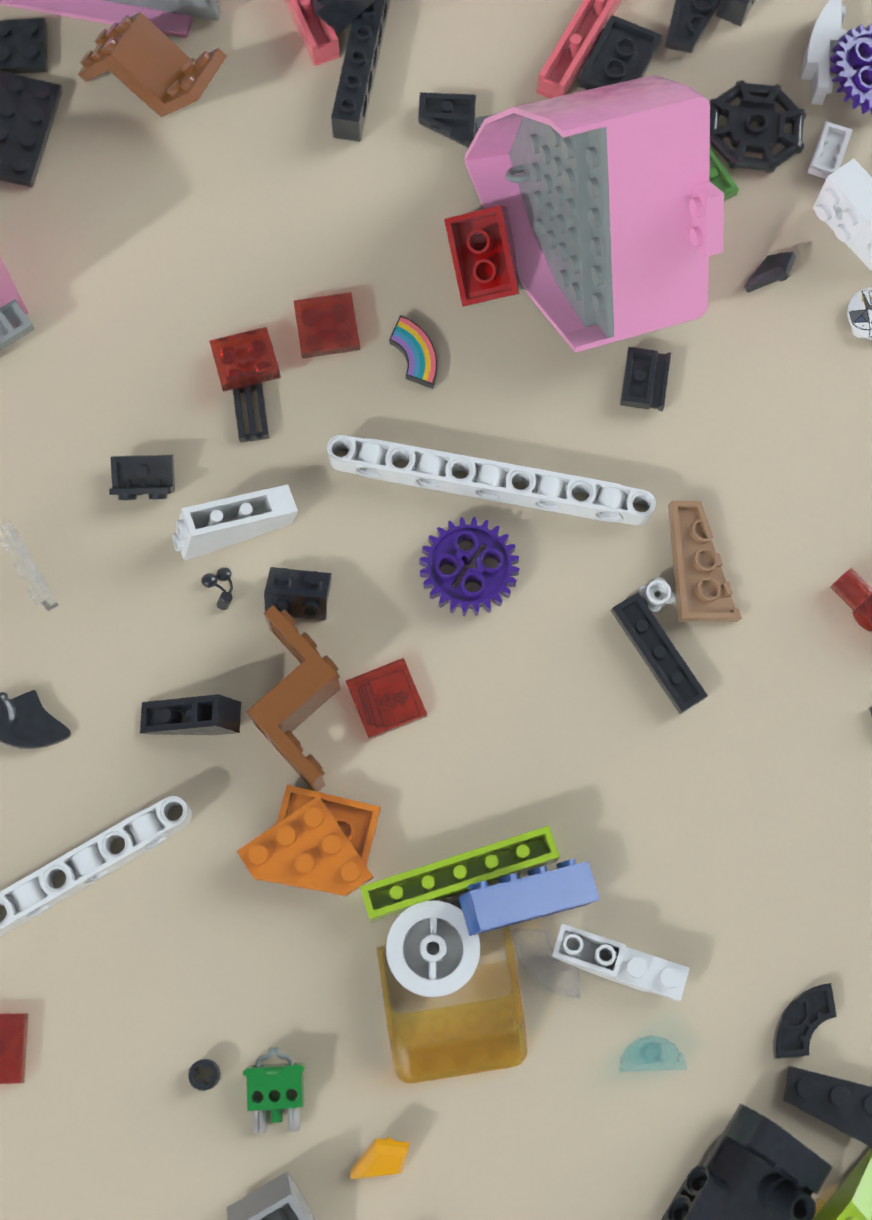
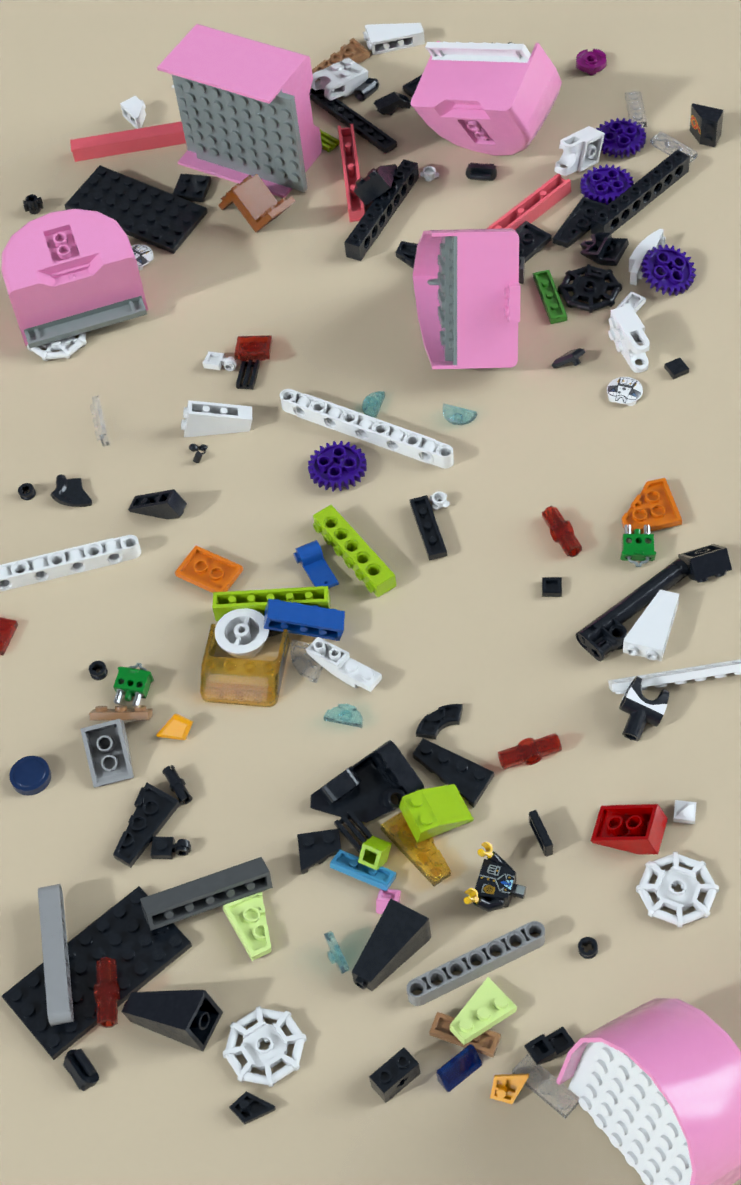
camera: 25 degrees right, 20 degrees down
(142, 475) = (176, 391): black bracket -> none
(187, 396) = (215, 361): none -> white plate
(278, 1158) = (121, 712): none -> medium nougat plate
(295, 697) = (215, 503): dark orange bracket -> none
(298, 592) = (237, 461): black bracket -> none
(307, 853) = (191, 576): orange plate -> none
(326, 325) = (305, 341): clear red plate -> none
(386, 698) = (267, 520): clear red tile -> none
(417, 350) = (351, 363): tile -> none
(482, 428) = (372, 403): none -> clear light blue plate
(483, 255) = (404, 319): red slope -> none
(497, 673) = (354, 551): none -> lime brick
(503, 775) = (314, 564): none -> blue door
(629, 420) = (458, 415): none -> clear light blue plate
(645, 379) = (474, 396): black plate -> none
(698, 574) = (467, 493): medium nougat wing -> none
(754, 46) = (604, 248): none -> black plate

